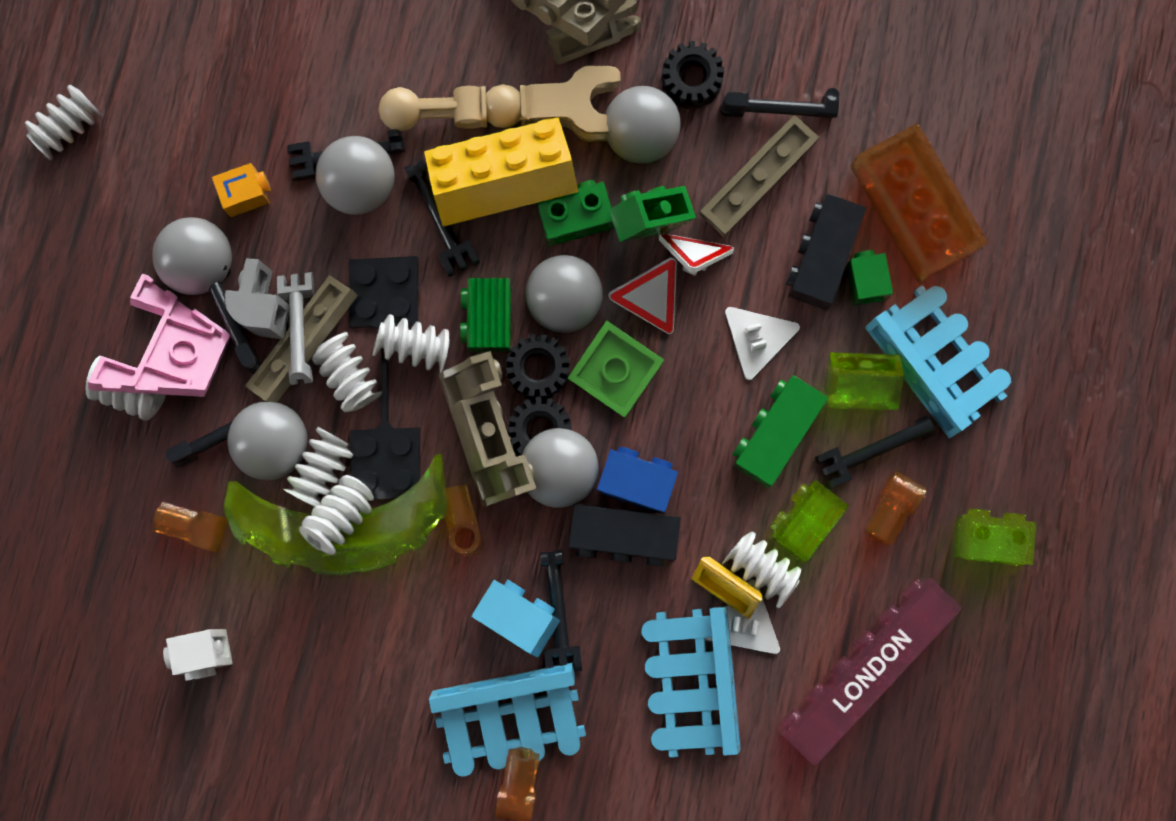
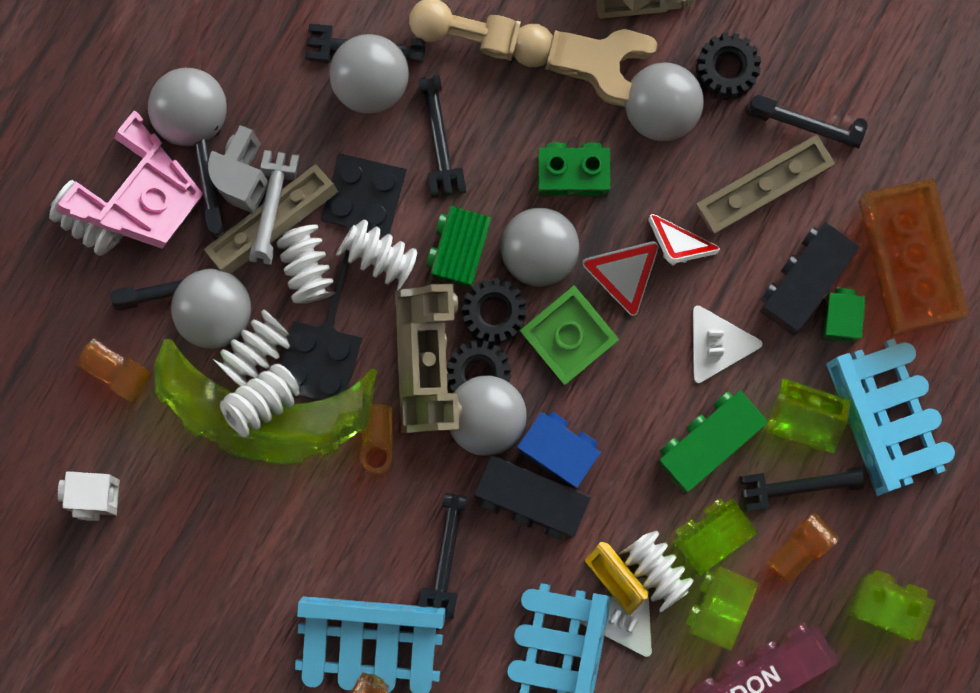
camera: 10 degrees right, 0 degrees up
(242, 189) = (254, 55): light orange brick -> none
(501, 171) = (512, 110): yellow brick -> none
(516, 618) = (404, 549): medium azure brick -> none
(651, 212) = (648, 192): green brick -> none
(835, 586) = (722, 607): none -> clear neon green brick

